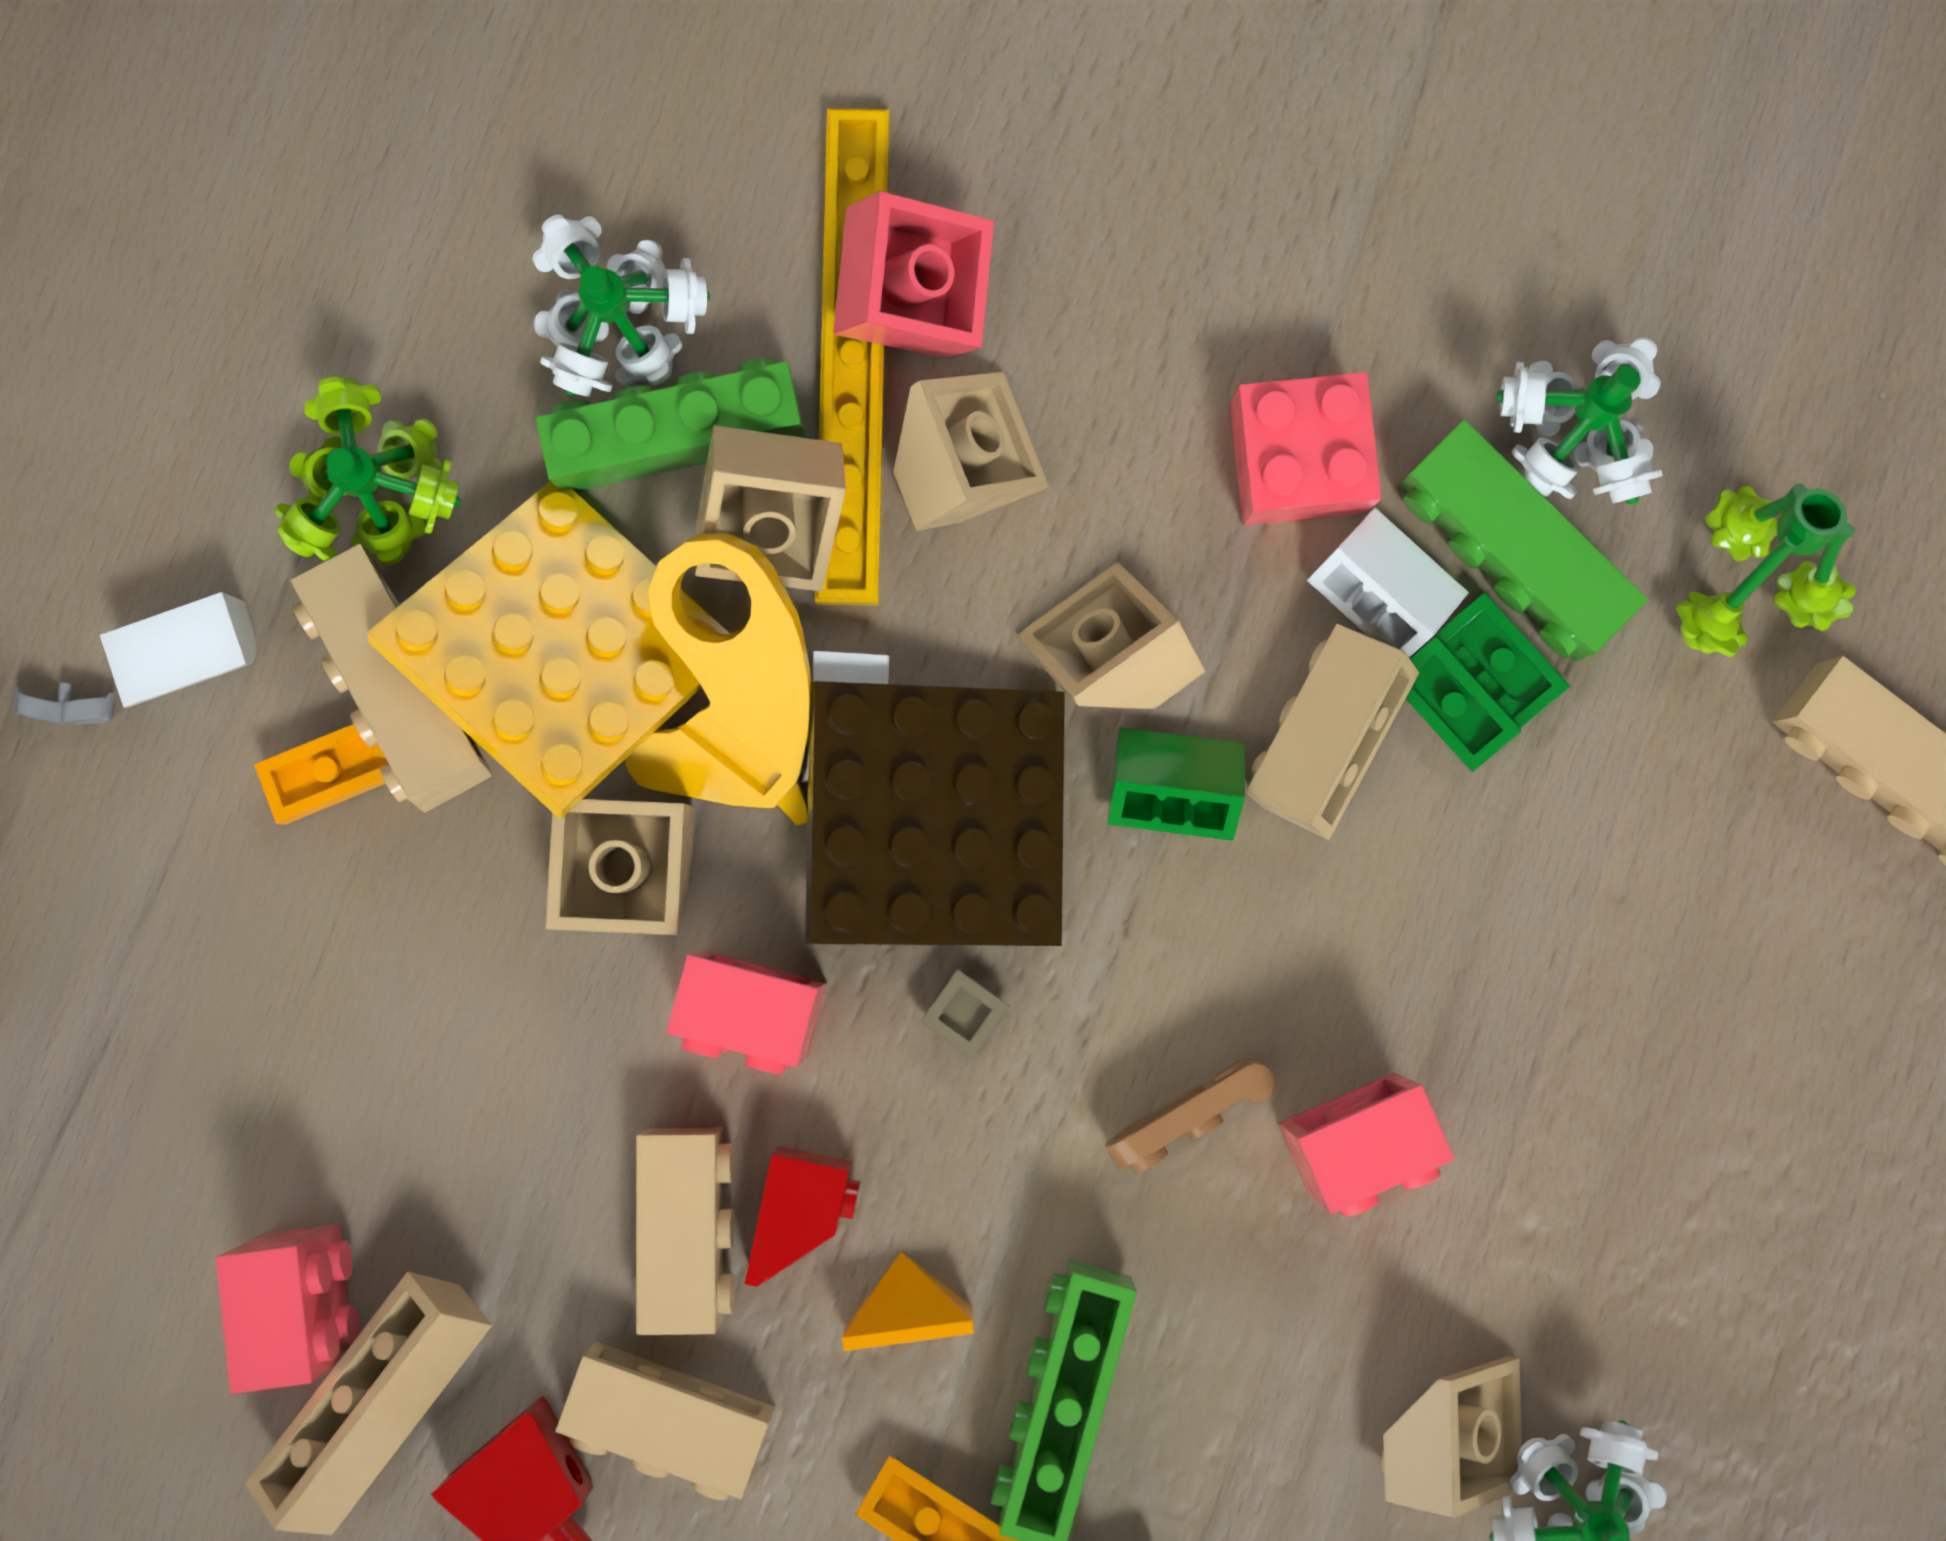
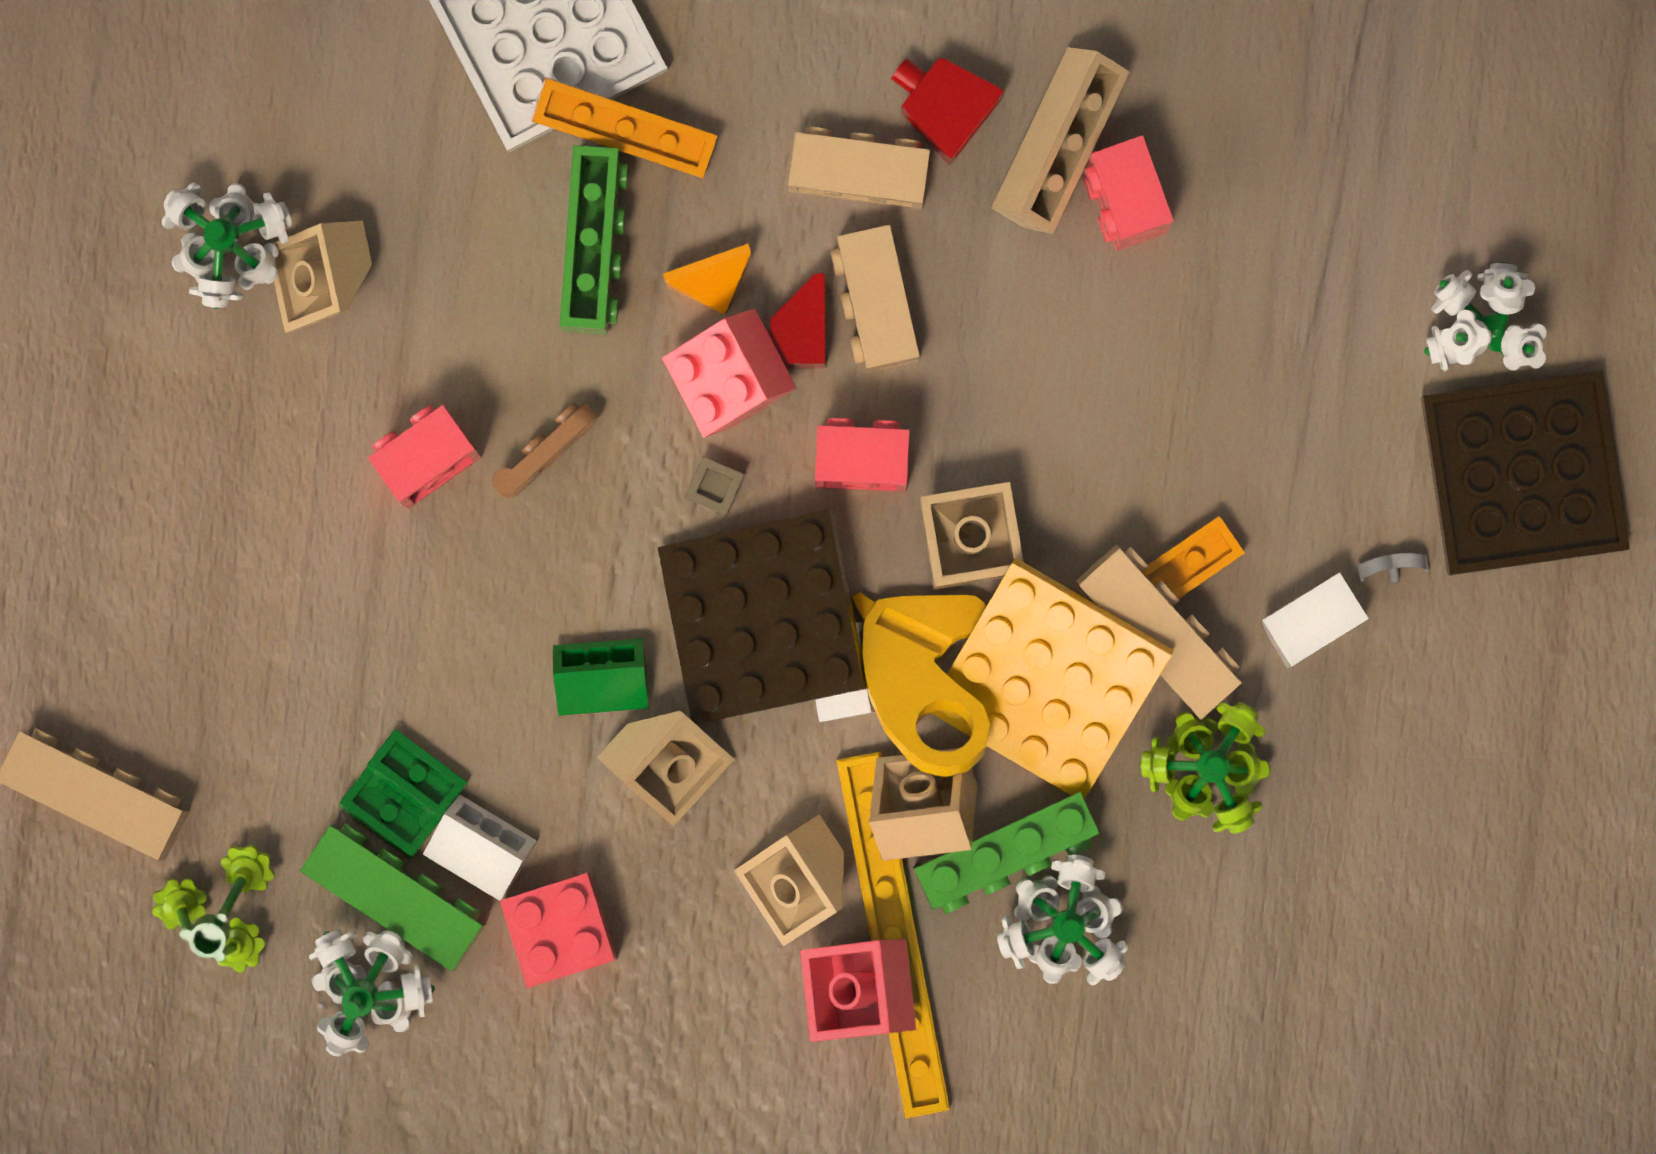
camera: 170 degrees right, 0 degrees up
(909, 1171) = (729, 372): none -> coral brick
(1331, 730) = (500, 734): tan brick -> none

